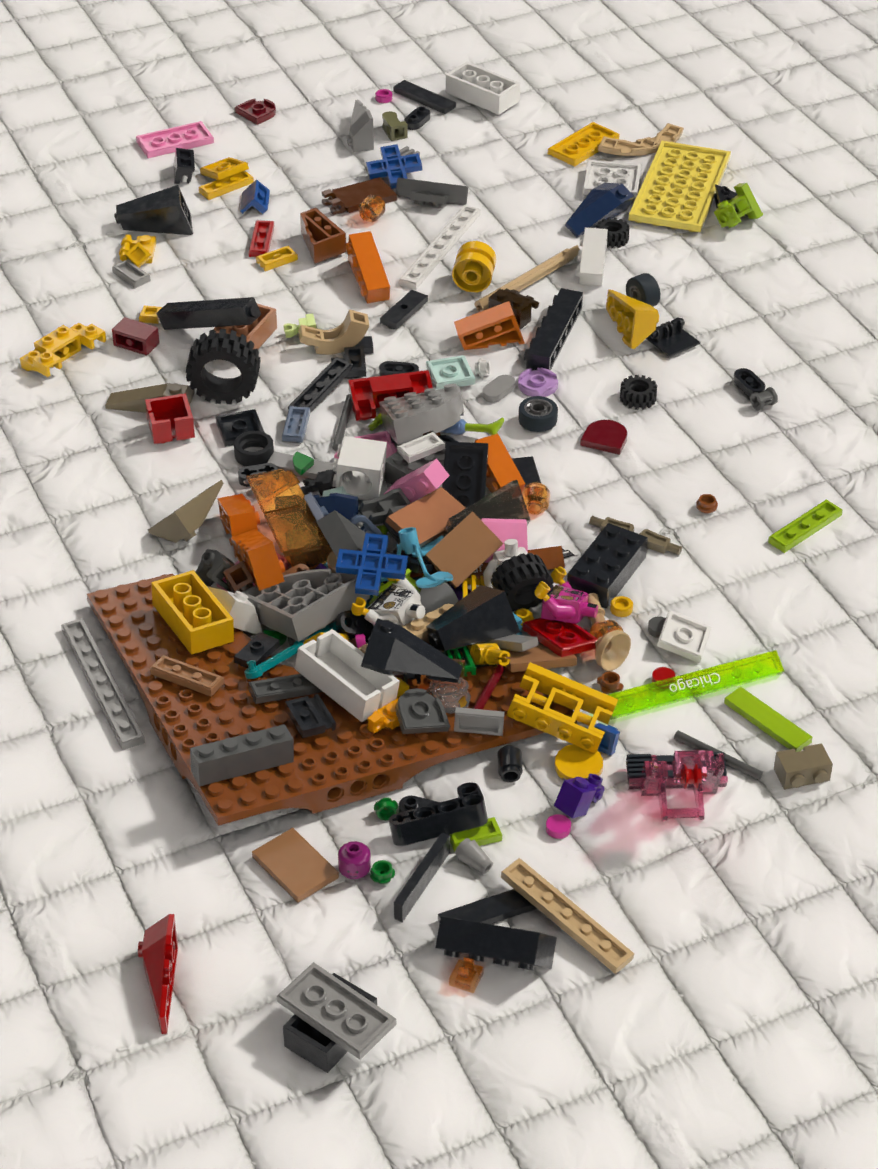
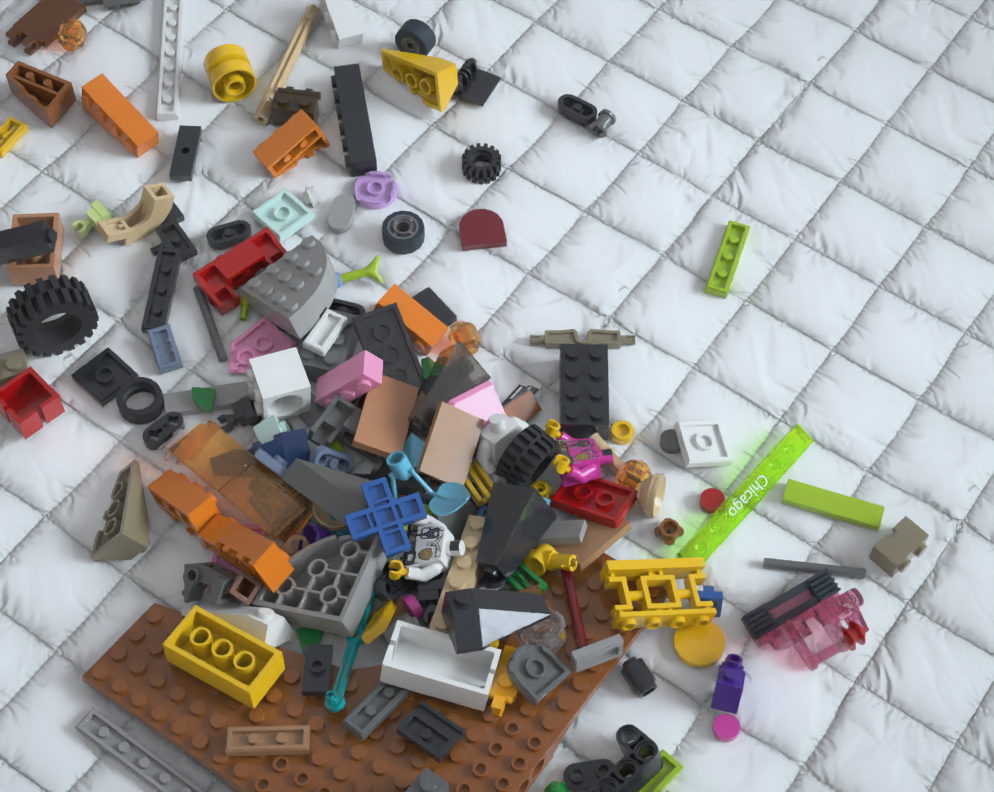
camera: 30 degrees left, 15 degrees up
(707, 503) = (626, 273): dark orange plate -> none

